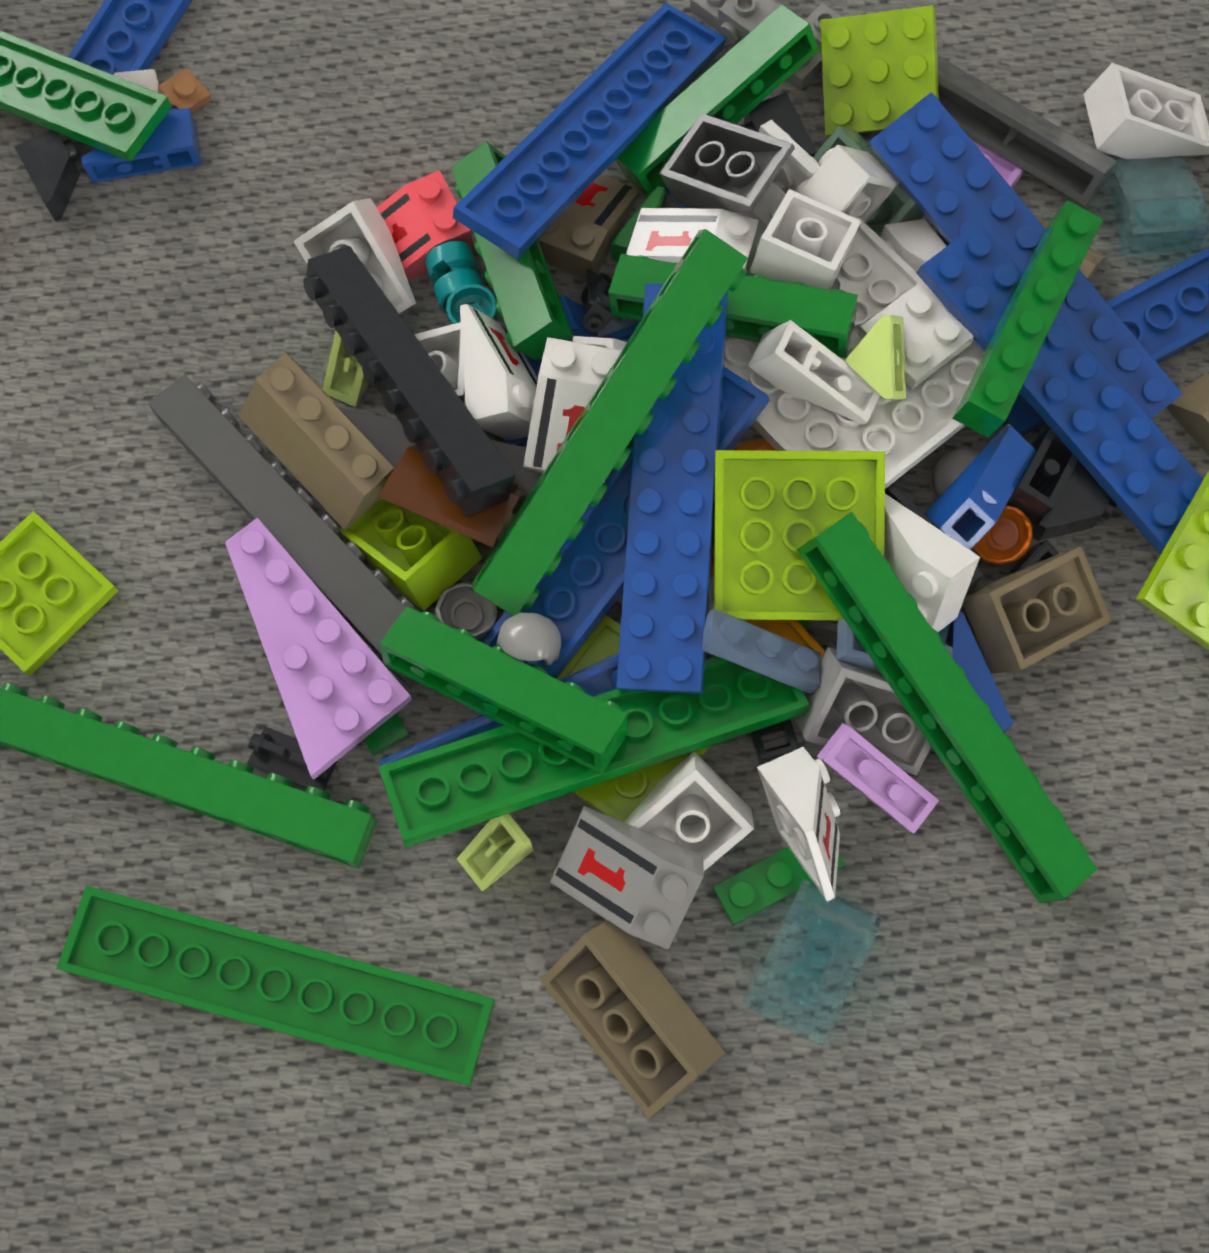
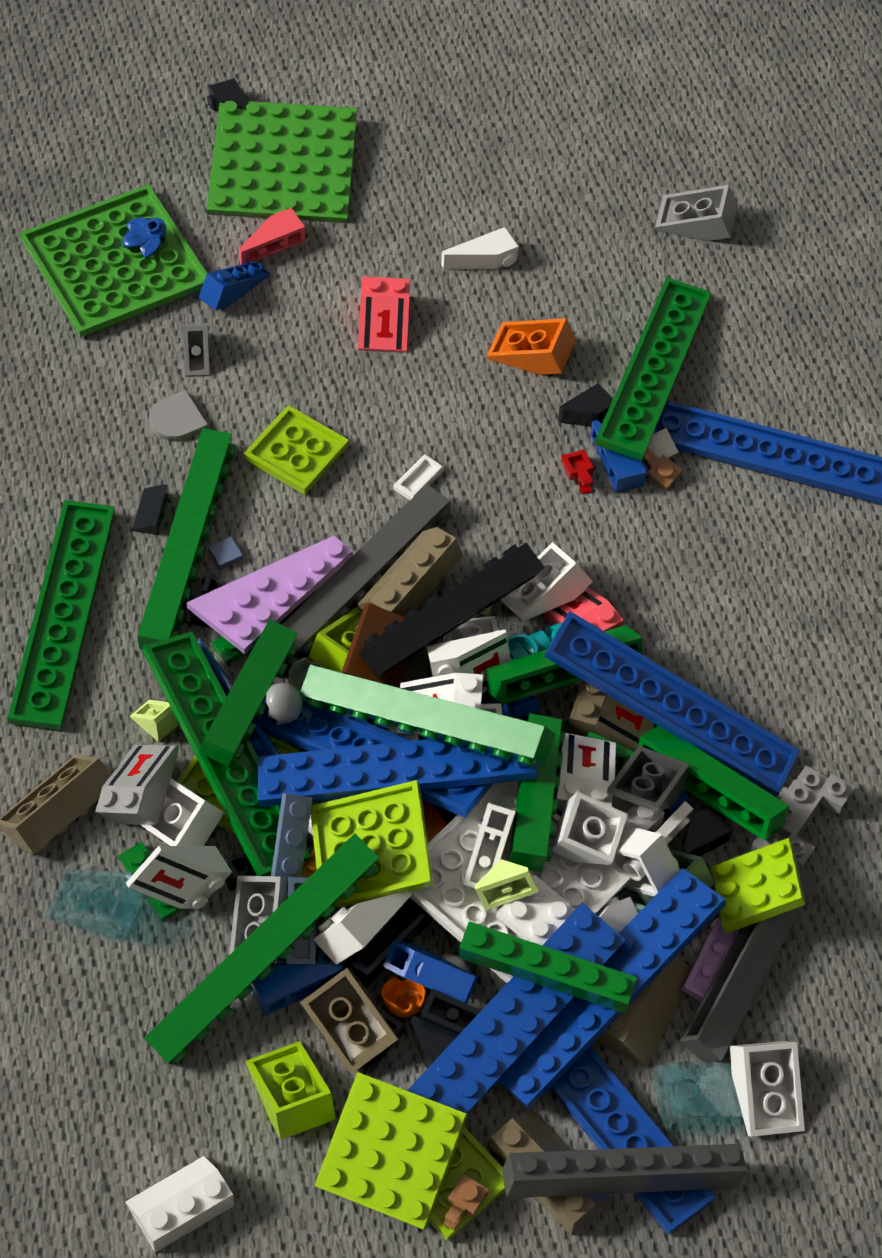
camera: 75 degrees right, 15 degrees down
(99, 829) = (151, 509): none -> black slope
(121, 422) = (421, 473): none -> white tile
(151, 200) = (579, 466): none -> red plate
(205, 719) = (225, 553): none -> sand blue tile
(878, 778) = (218, 925): lavender plate -> none
(1129, 704) = (291, 1090): none -> lime slope

